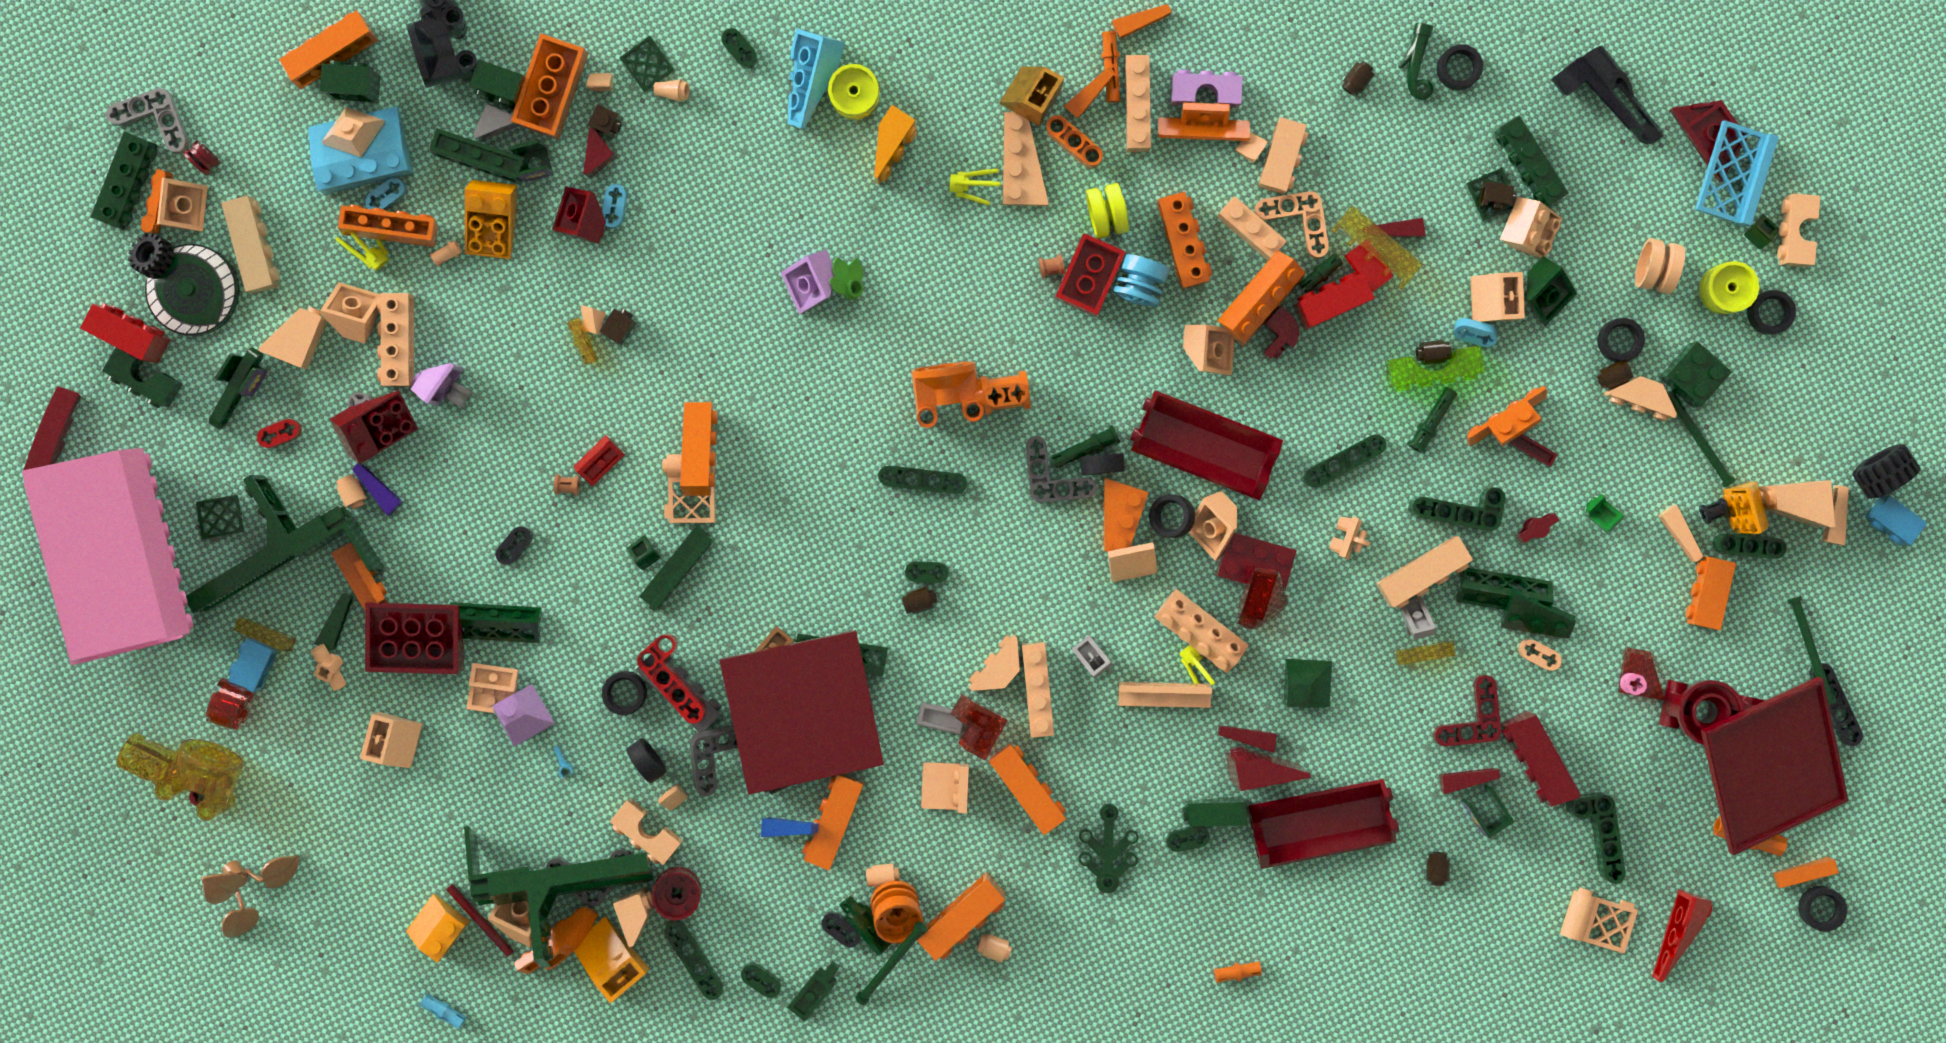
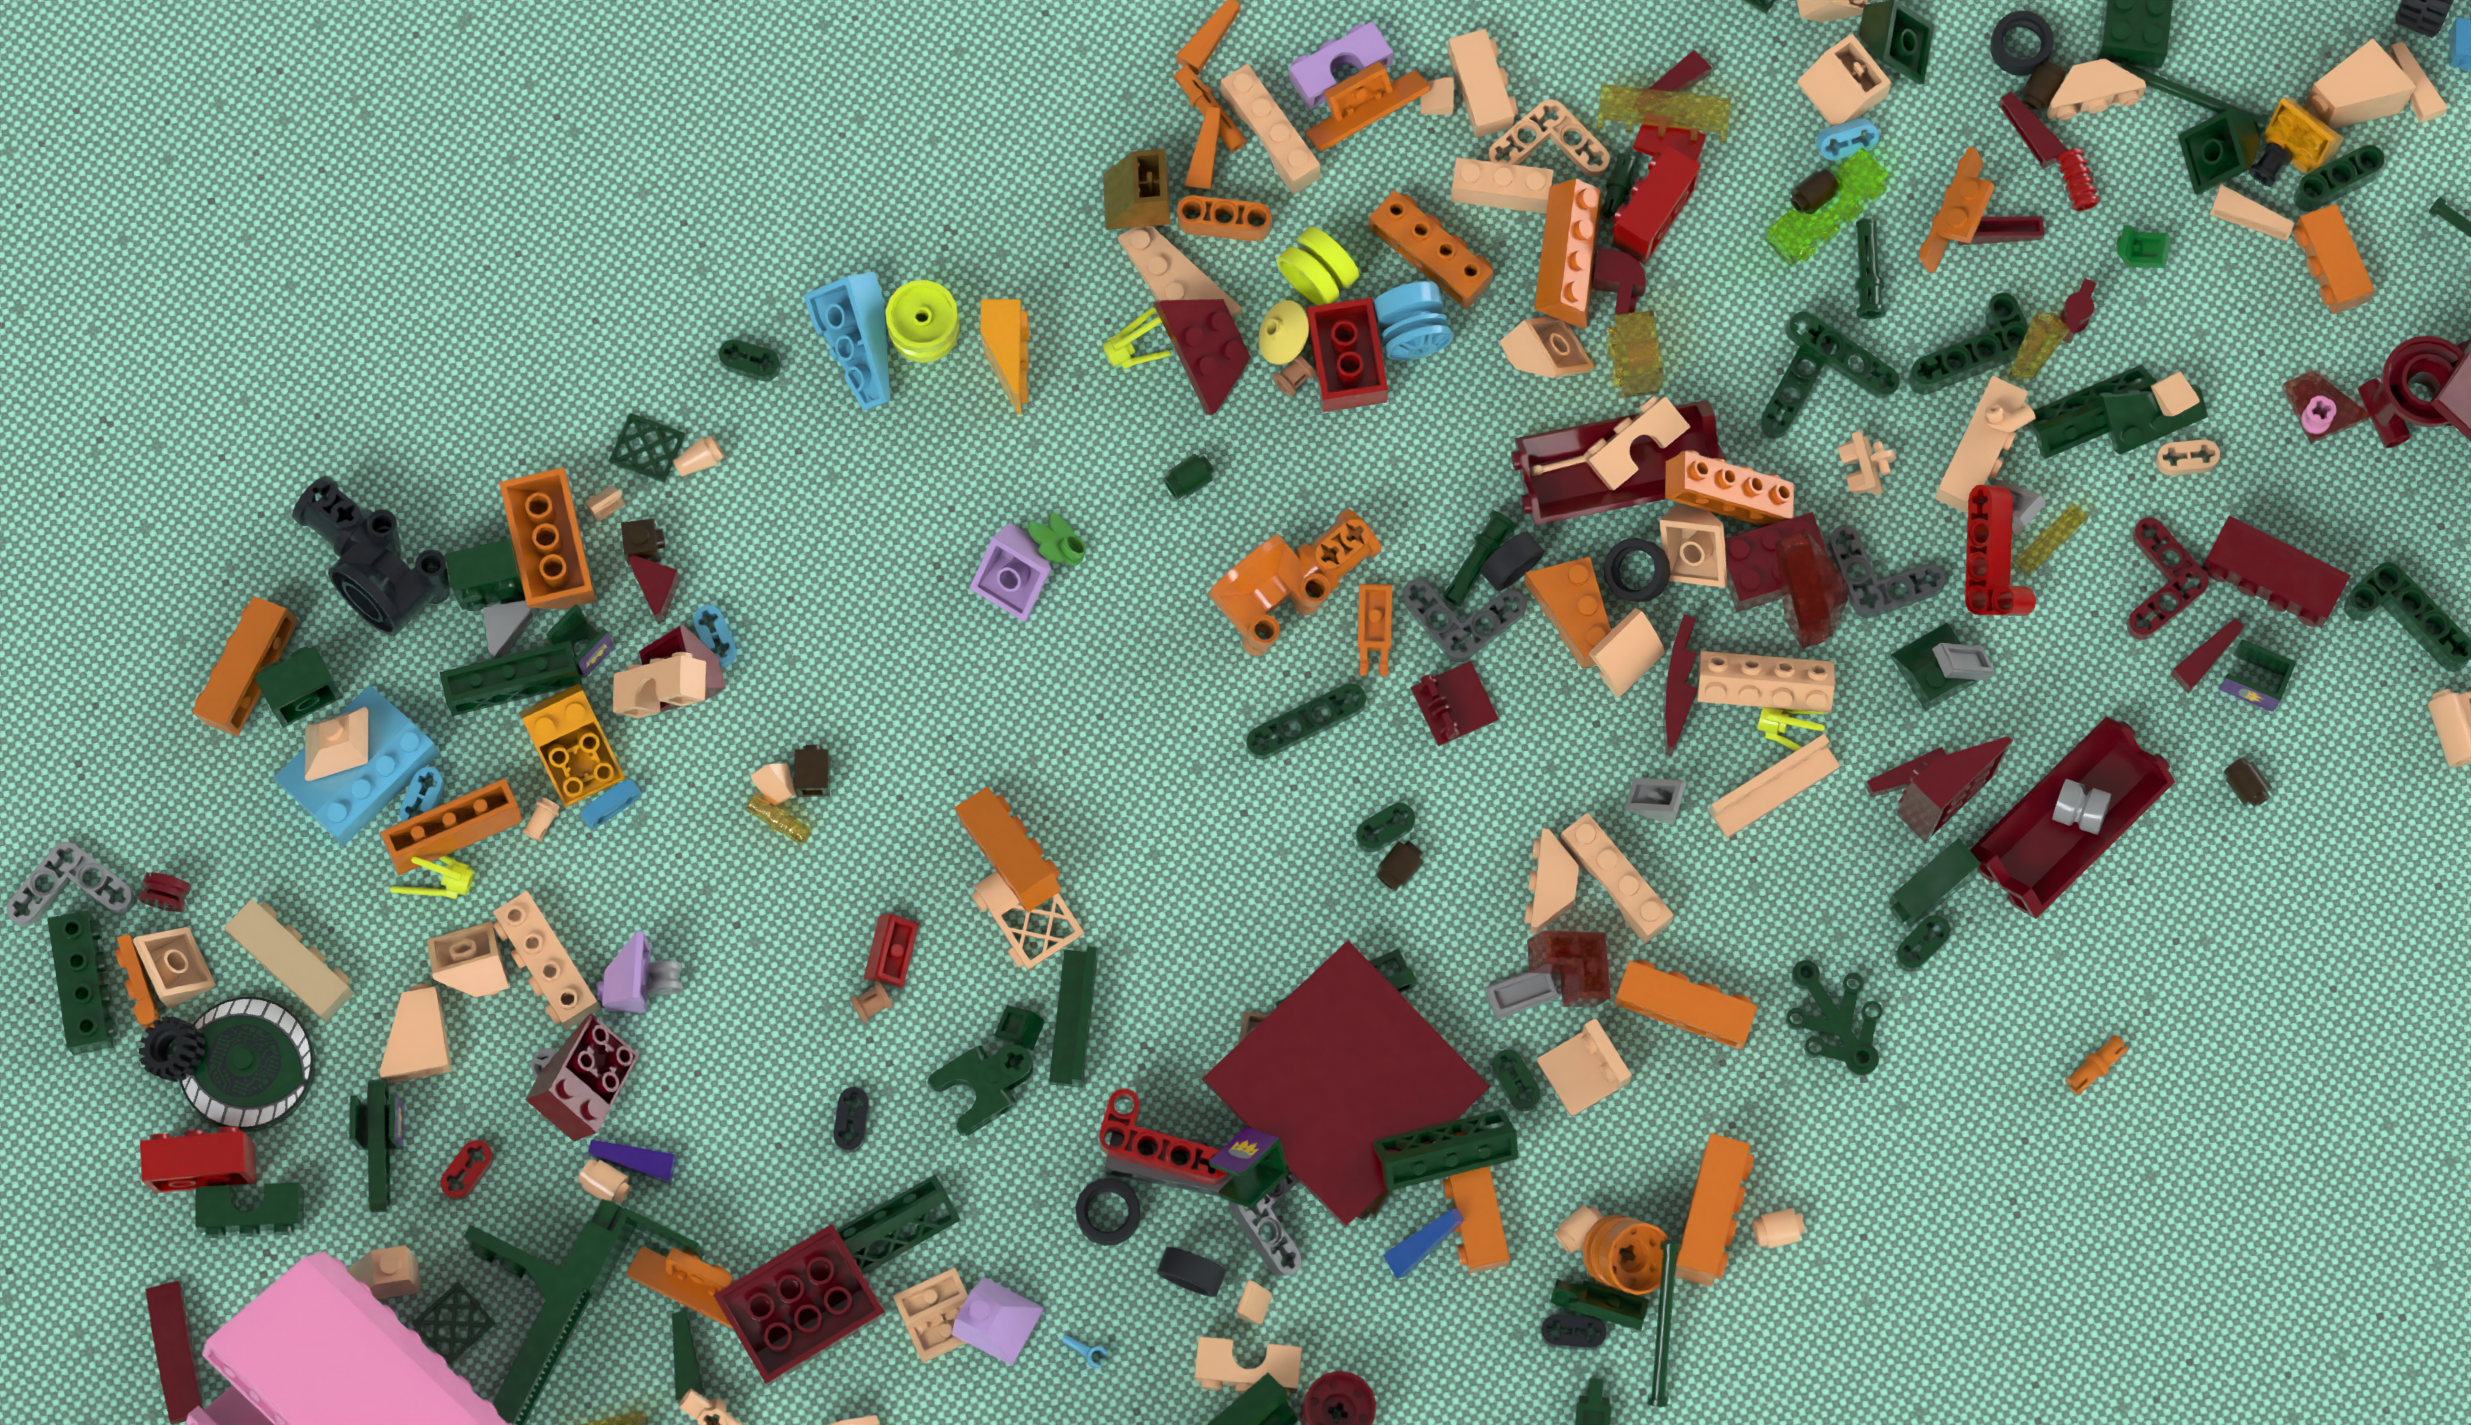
camera: 25 degrees left, 15 degrees down
(194, 469) = (388, 1272): none -> light nougat slope
(491, 269) = (610, 803): none -> dark azure beam
(558, 219) = (670, 680): none -> light nougat arch
(603, 574) = (990, 1080): none -> dark green piece
(712, 728) = (1252, 1169): none -> piece
(833, 792) = (1449, 1153): none -> dark green fence
(910, 765) = (1522, 1075): none -> dark green beam
(949, 288) = (1189, 476): none -> dark green brick
(999, 448) = (1374, 625): none -> orange hinge
(1010, 216) = (1206, 346): none -> dark red wing
(1015, 524) = (1454, 703): none -> dark red hinge
(1062, 237) = (1283, 332): none -> light yellow dish
(1145, 604) = (1678, 694): none -> dark red slope
(1191, 428) = (1538, 470): none -> light nougat hinge
(1241, 435) = (1612, 458): none -> light nougat arch
(1256, 506) = (1728, 489): none -> orange brick
(1259, 386) = (1636, 354): none -> clear yellow brick
(1306, 617) = (1880, 589): none -> dark grey beam
(1323, 694) = (1963, 661): none -> light grey tile
(1331, 823) = (2081, 806): none -> light grey wheel
(1380, 643) = (1990, 556): none -> red beam
(1381, 463) = (1840, 358): none -> dark green beam
(1447, 571) = (2006, 421): none -> light nougat arm
(1502, 533) = (2039, 343): none -> clear yellow slope
(1557, 619) = (2174, 394): none -> light nougat slope
(1589, 398) = (2034, 133): none -> dark red piece
(1594, 446) = (2078, 179): none -> red piece
(1691, 483) = (2219, 149): none -> dark green slope

